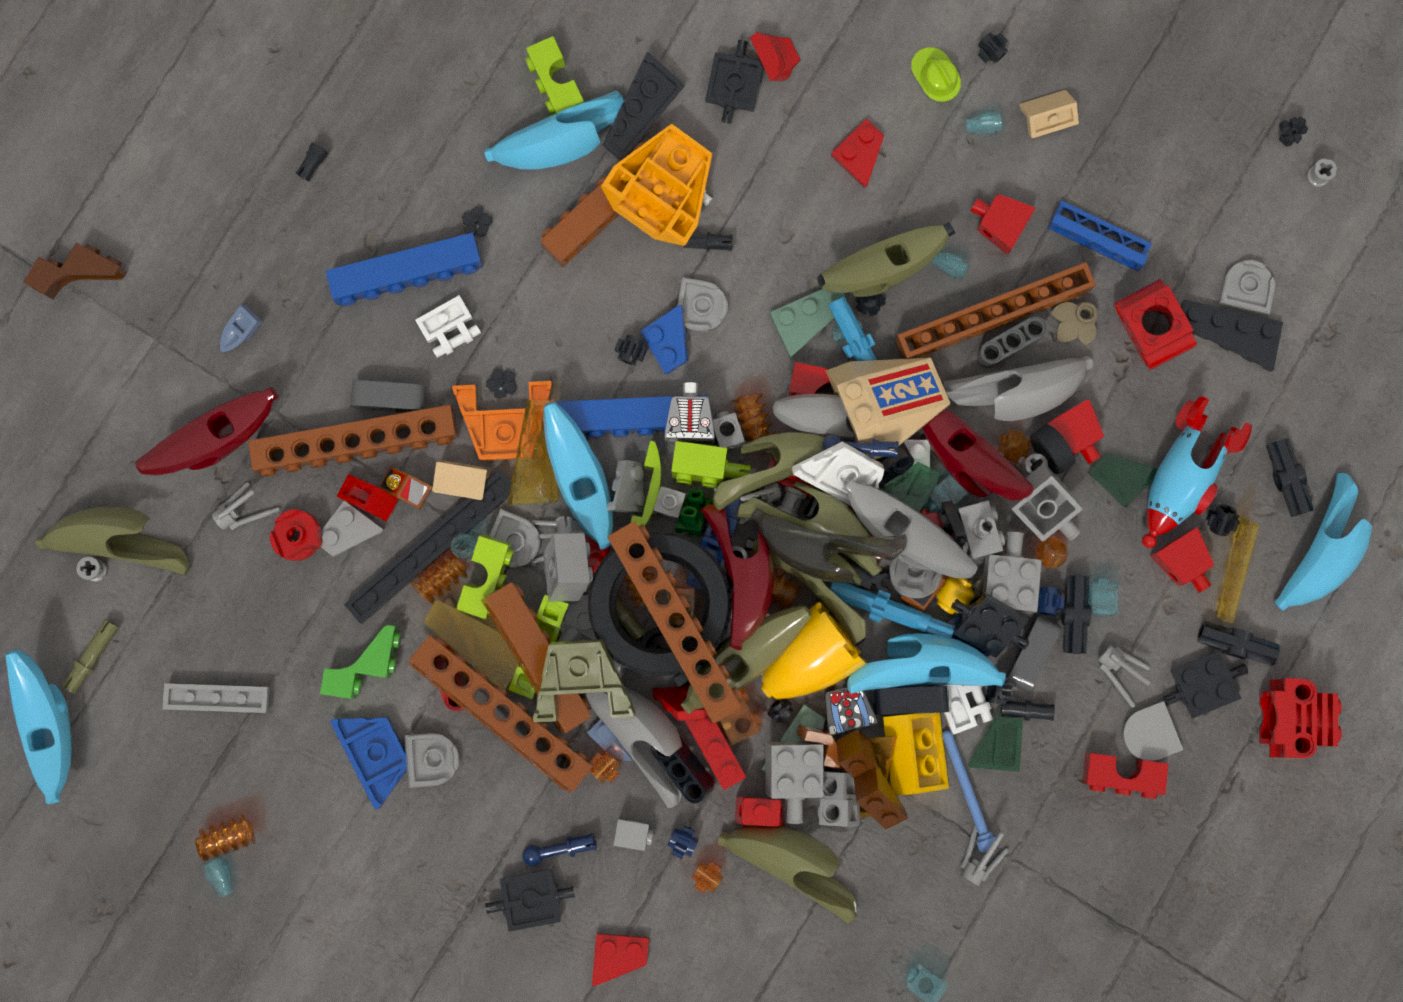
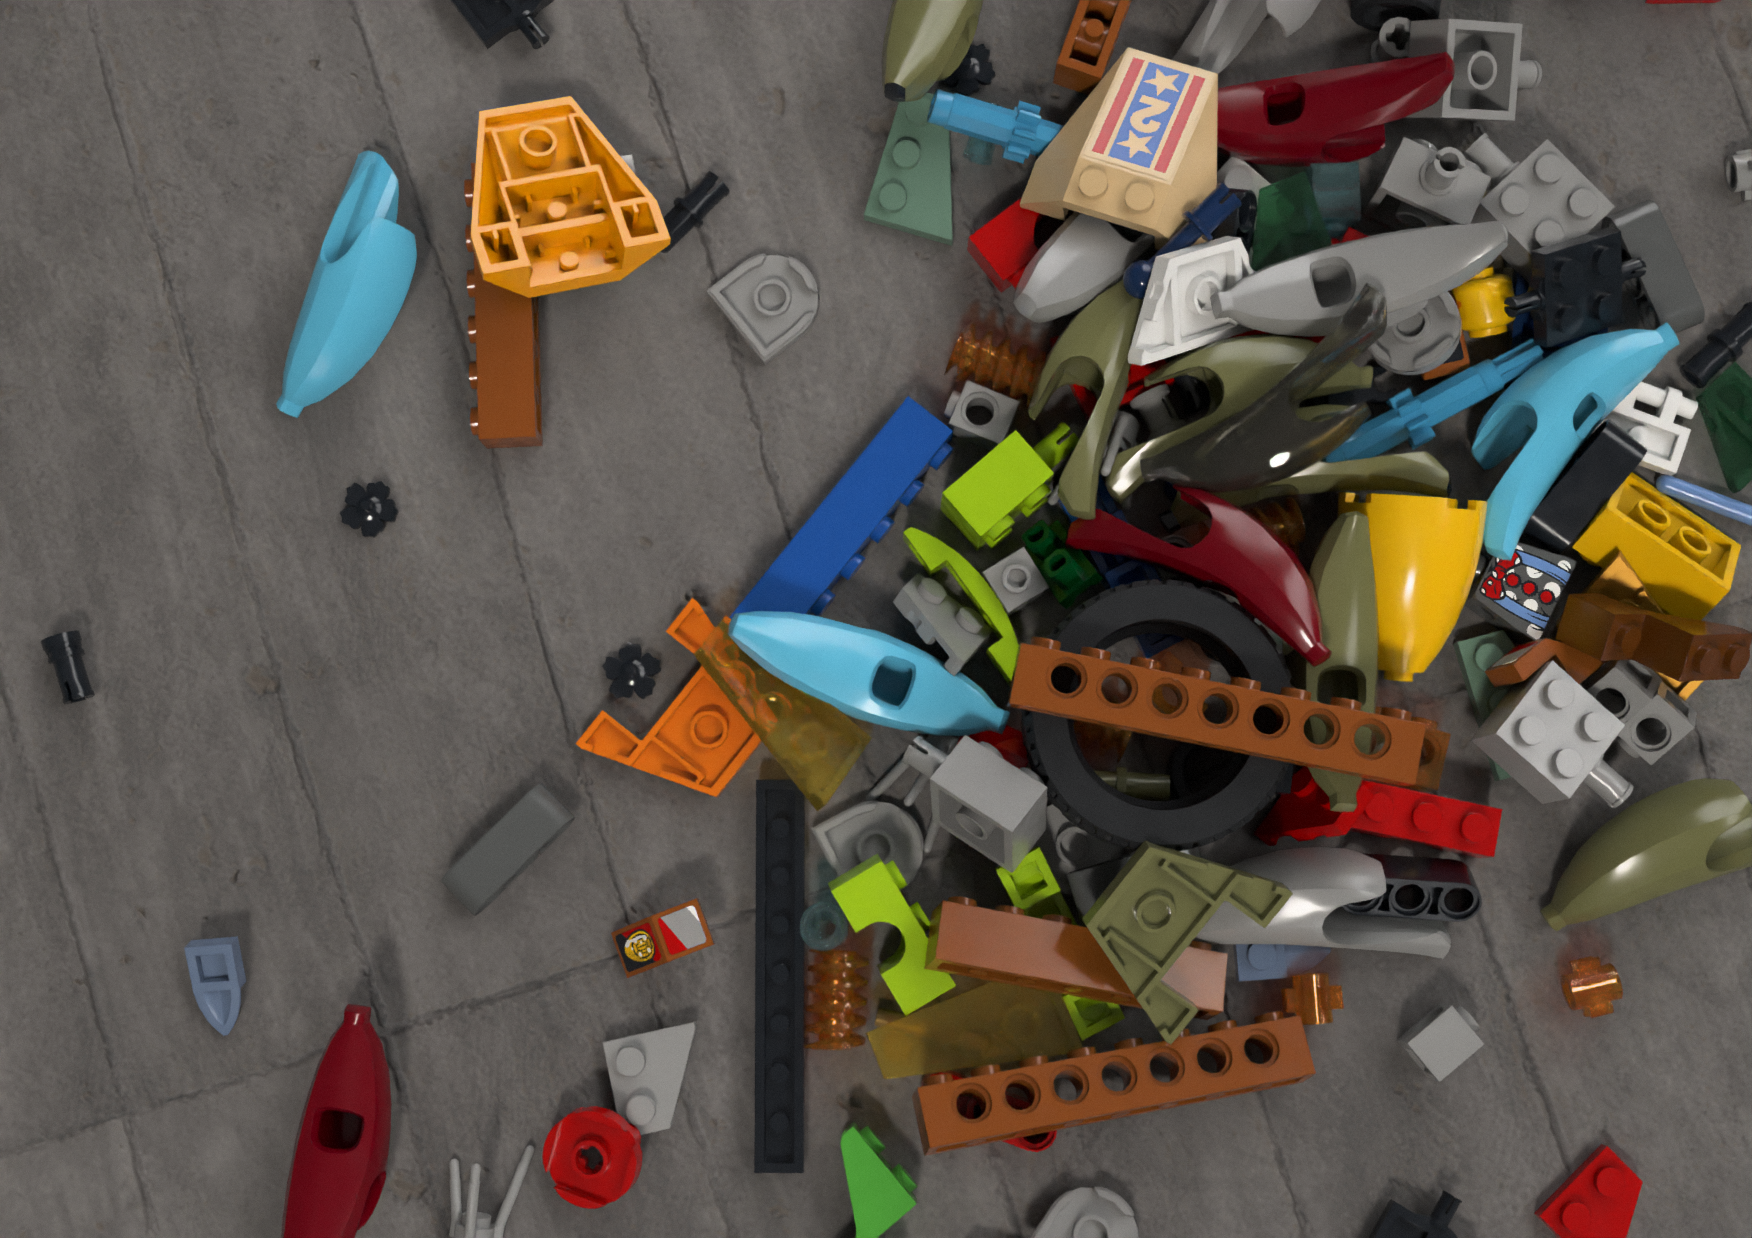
camera: 45 degrees left, 0 degrees up
(263, 449) = (425, 1096): dark orange brick -> none
(367, 497) = (628, 1005): red arch -> none
(404, 269) = (345, 668): blue brick -> none
(445, 319) = (469, 676): white plate -> none
(460, 479) = (721, 848): tan panel -> none
(533, 854) = (1347, 1208): dark blue pin -> none
(545, 60) = (224, 214): lime arch -> none
(630, 350) = (747, 449): black gear -> none
(645, 101) = (413, 129): black wing -> none
(667, 340) = (777, 386): blue wing -> none
(683, 842) = (1513, 978): dark blue gear -> none
(689, 417) = (922, 445): torso -> none
(759, 811) = (1562, 832): red torso -> none
(780, 710) = (1440, 682): black plate -> none
(951, 523) = (1389, 213): black wing -> none
(998, 694) = (1679, 360): black plate -> none
(1014, 445) = (1343, 44): clear orange gear -> none
(1050, 601) = (1607, 178): dark blue gear -> none
(1052, 552) = (1535, 122): clear orange piece -> none
(1076, 614) = (1648, 166): black piece -> none
(1103, 597) = (1656, 112): clear light blue brick -> none

